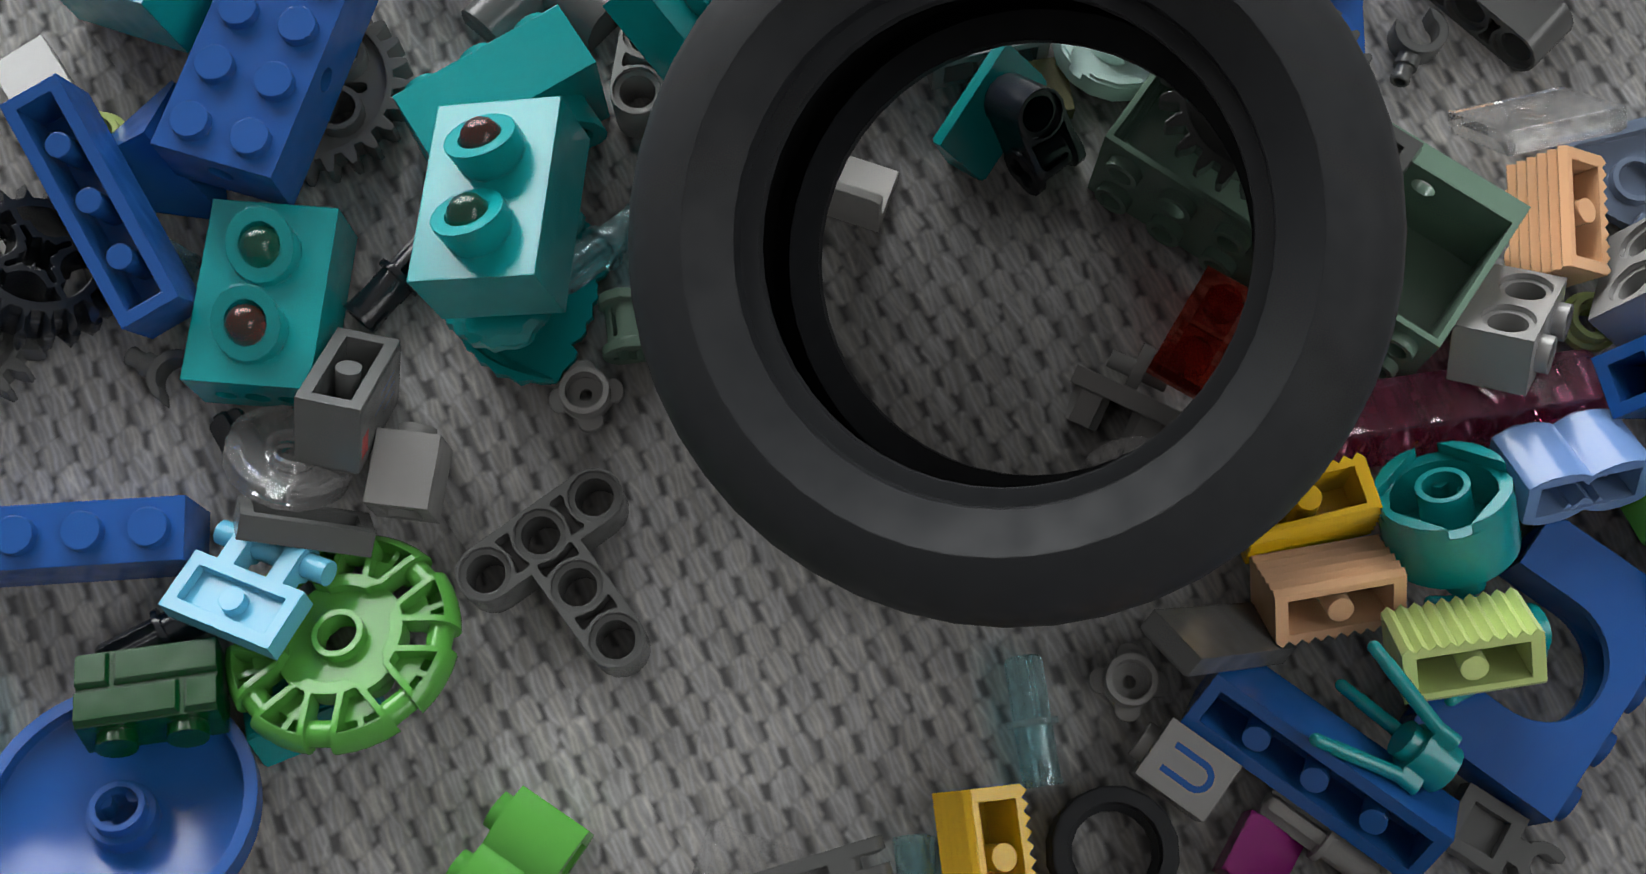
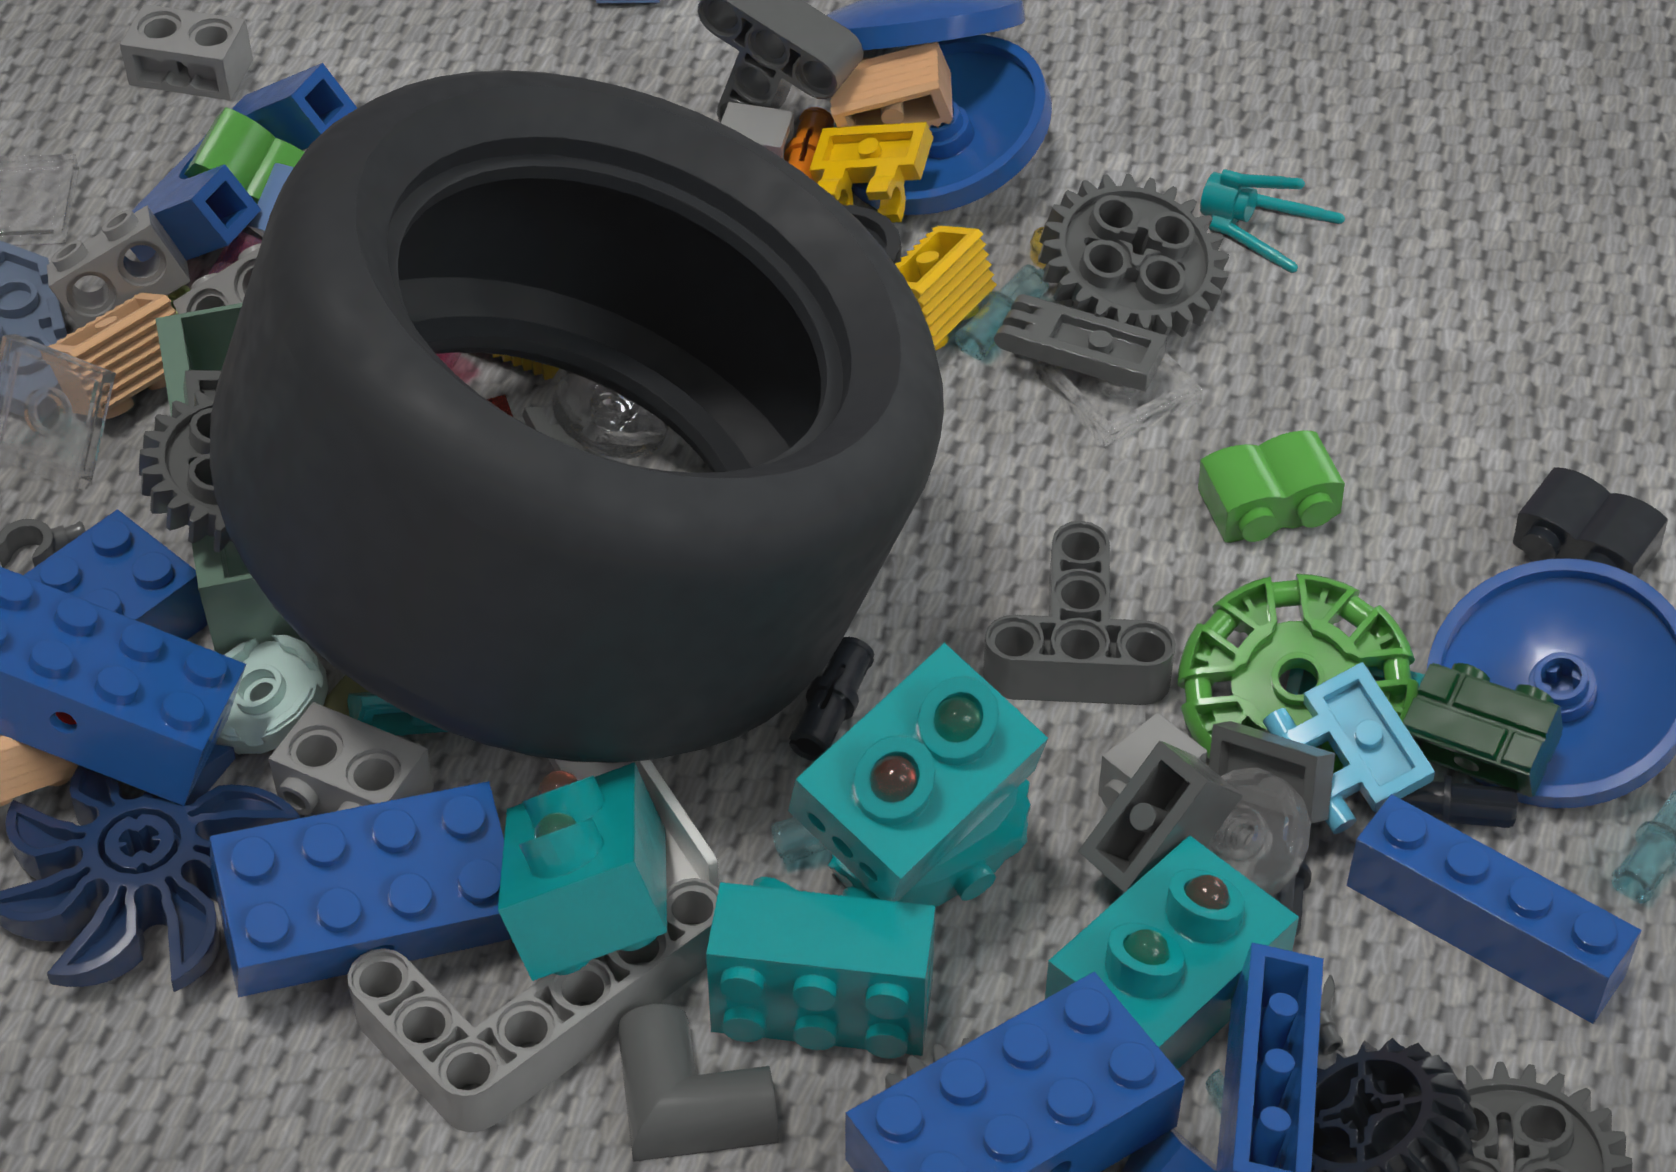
camera: 140 degrees left, 25 degrees down
(383, 291) = (1022, 939): black axle -> none

